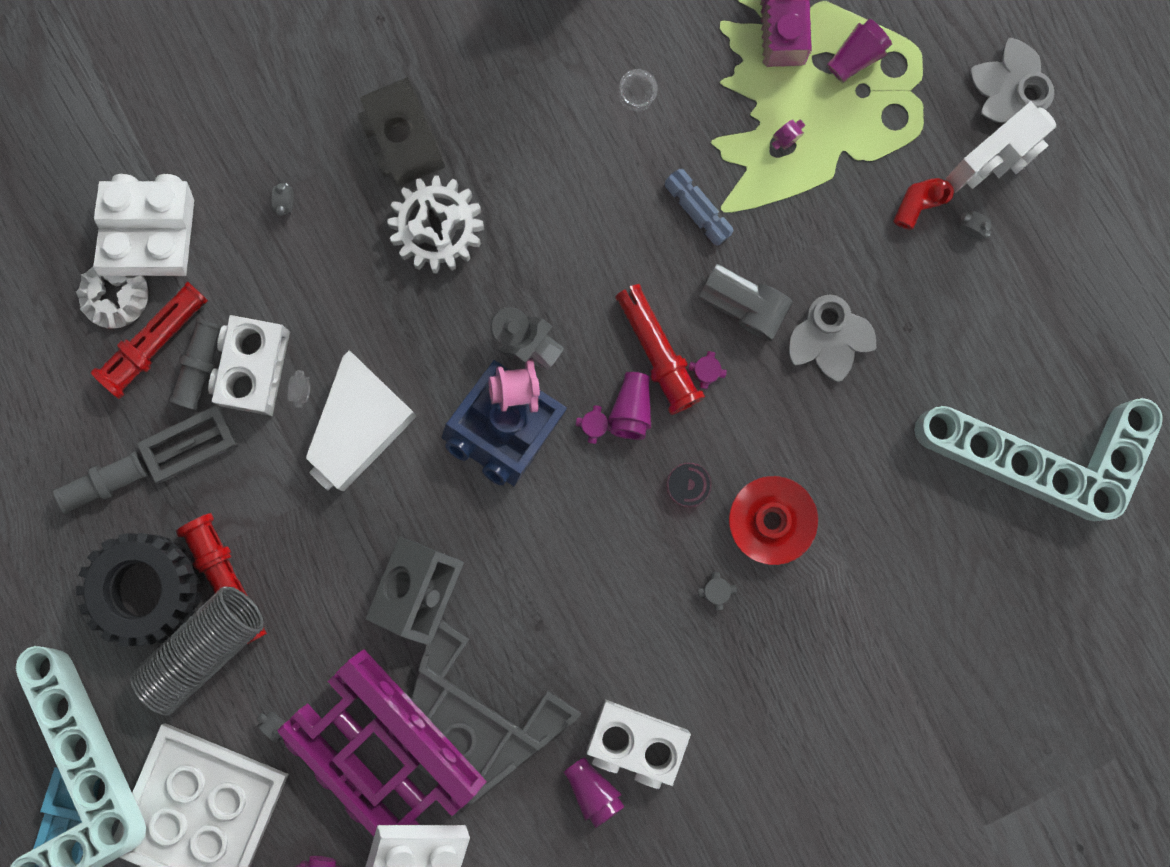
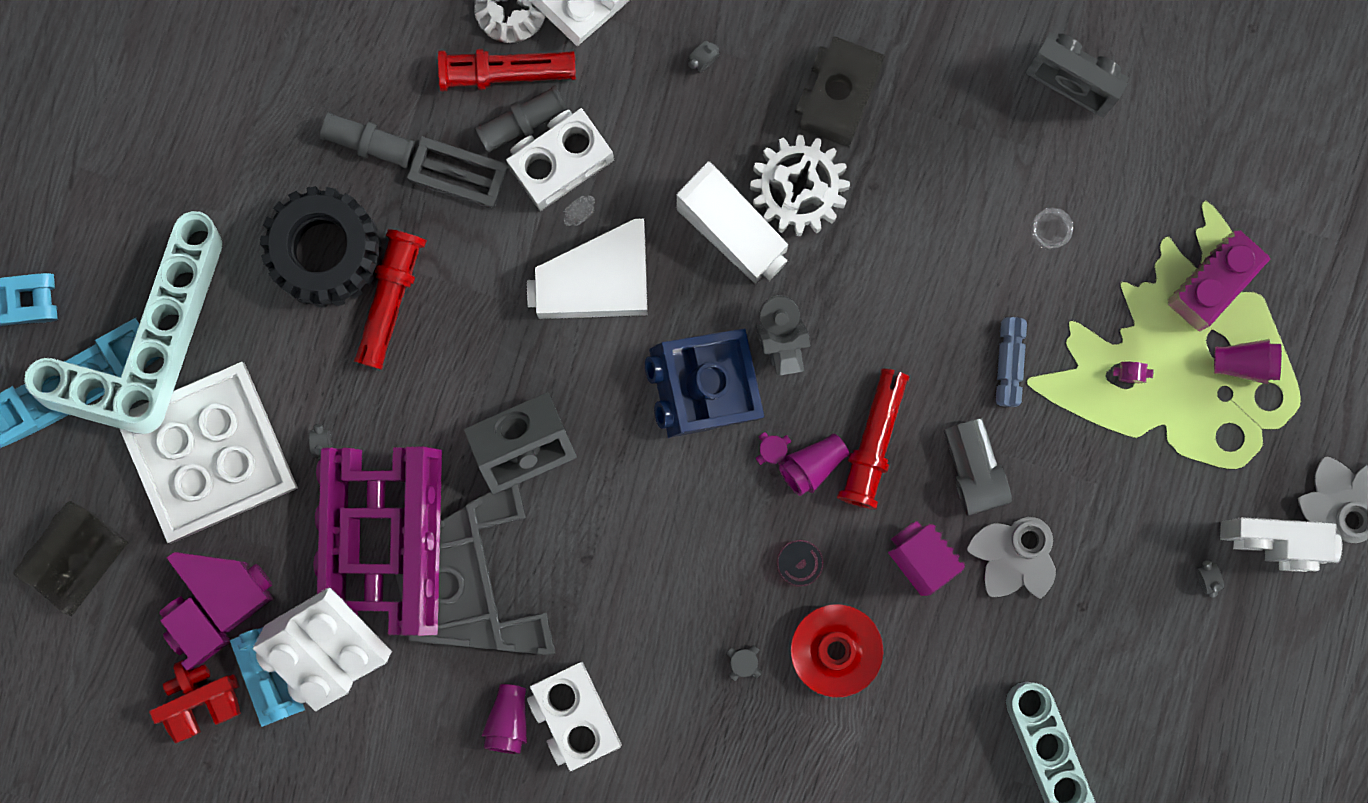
camera: 45 degrees right, 0 degrees up
(196, 651) = (324, 332): dark grey piece -> none
(414, 295) = (732, 224): none -> white slope
(515, 387) = (739, 365): bright pink brick -> none
(707, 370) = (898, 490): magenta piece -> none
(773, 397) = (924, 557): none -> magenta brick
(921, 197) = (1190, 518): red arm -> none

